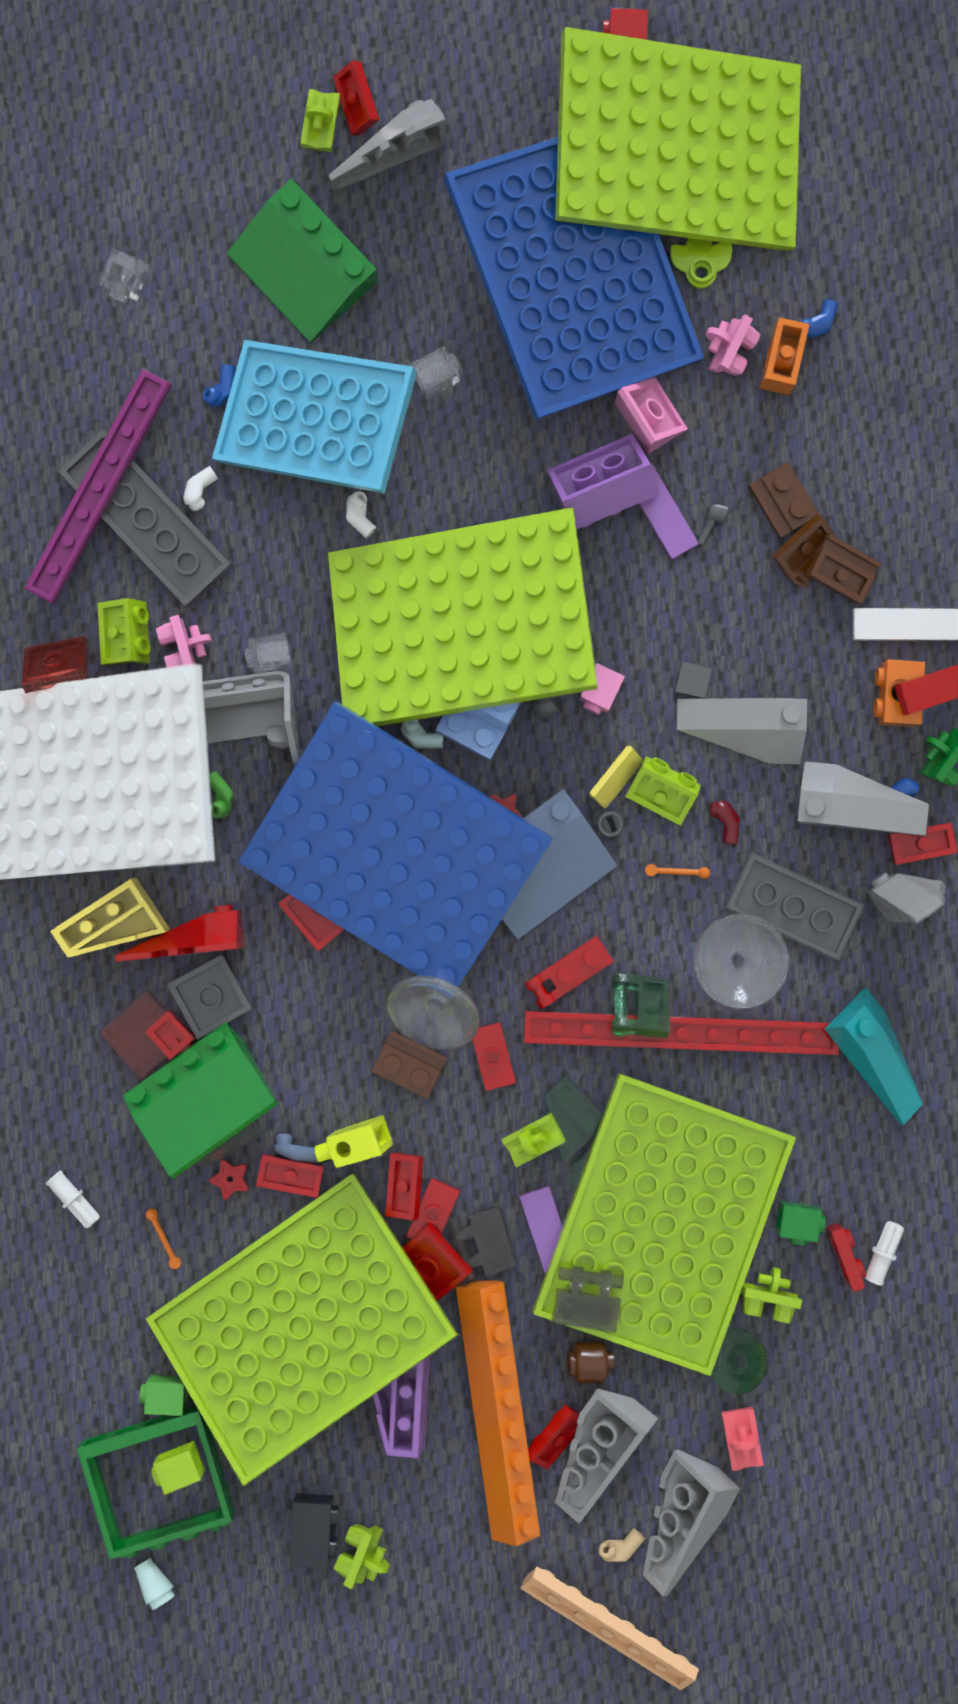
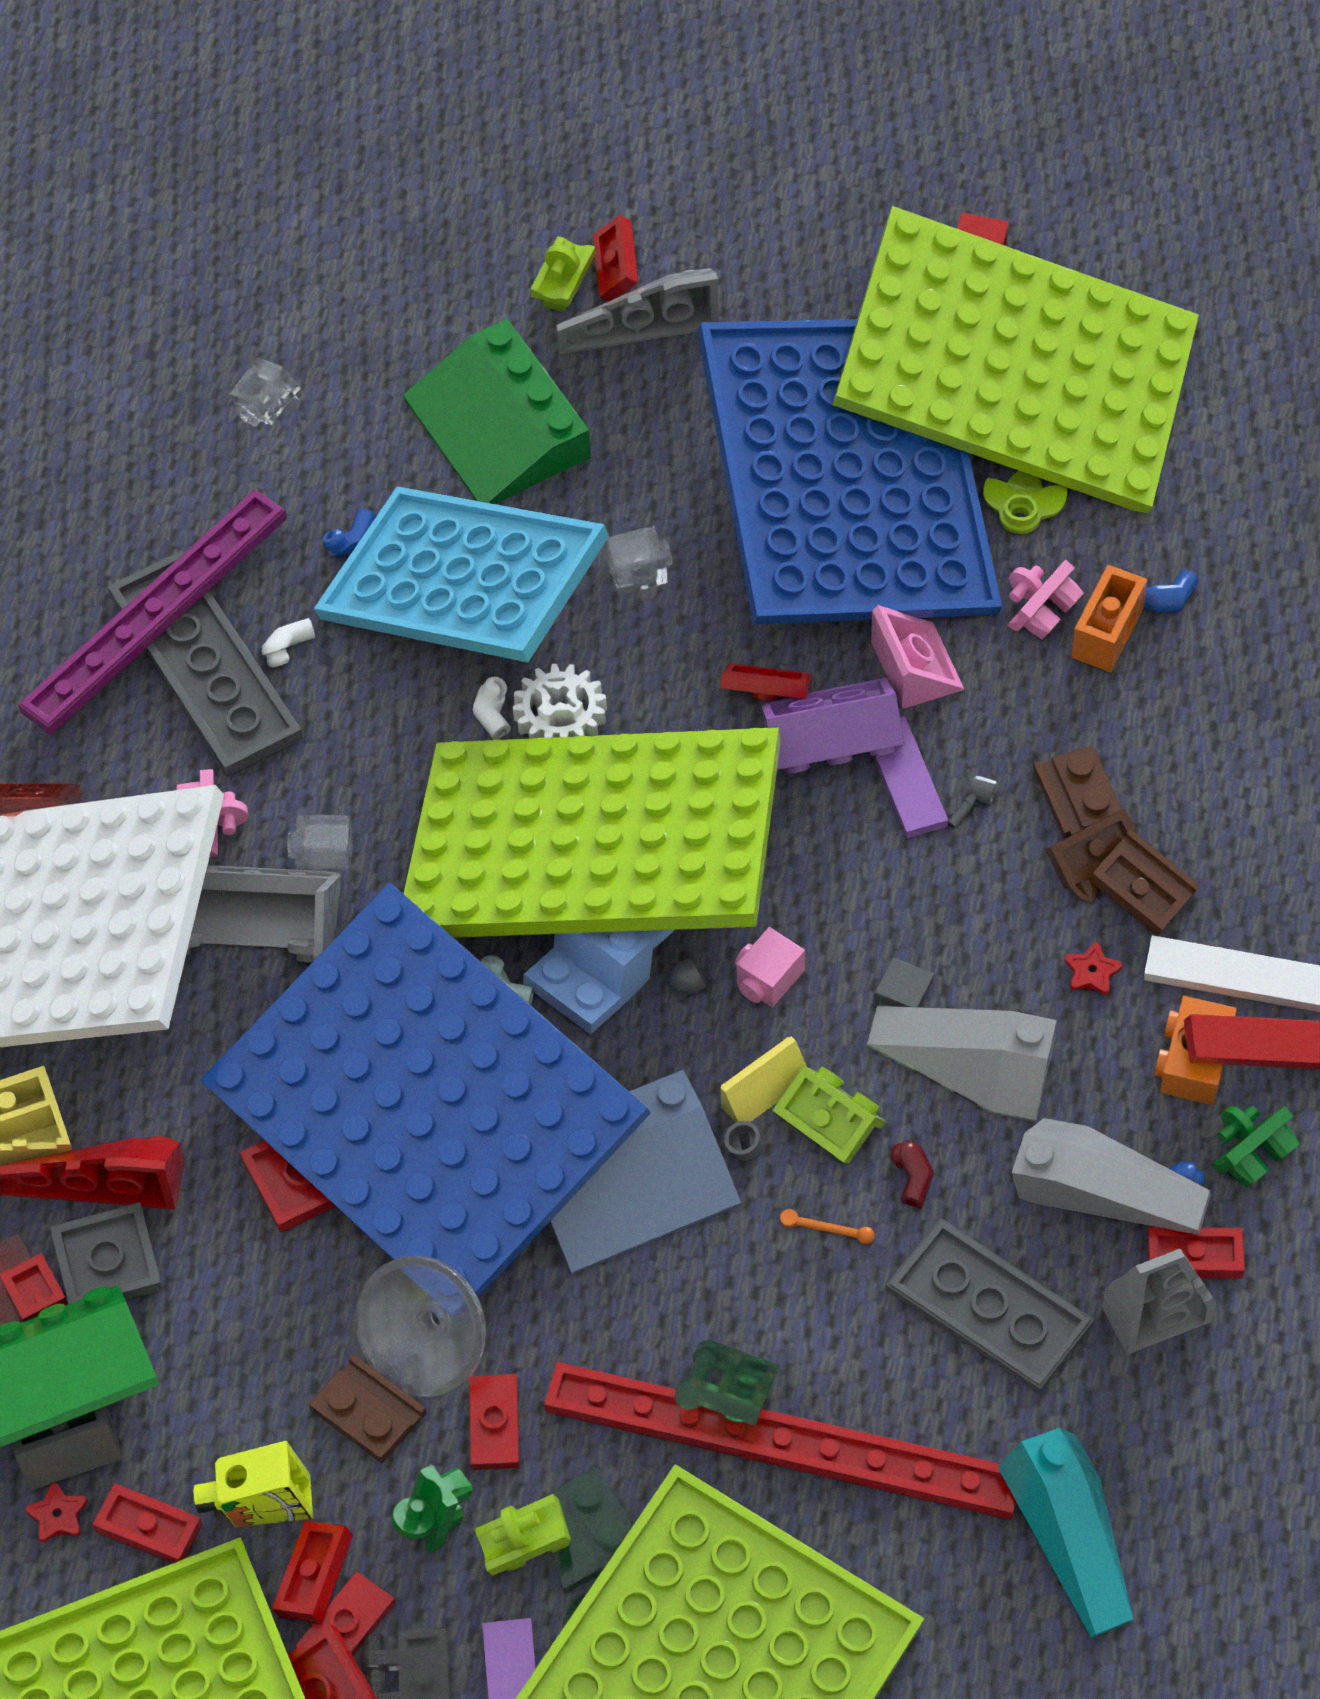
camera: 15 degrees right, 30 degrees down
(123, 632) = (134, 770): lime bracket -> none
(222, 798) = (205, 1007): bright green arm -> none
(294, 1152) = (155, 1484): sand blue arm -> none
(420, 513) = (559, 704): none -> white gear
(470, 1136) = (432, 1507): none -> green hips
(549, 455) = (766, 682): none -> red plate
(569, 971) = (636, 1328): red plate -> none
(763, 965) = (895, 1322): clear dish -> none
(812, 648) = (1089, 980): none -> red plate

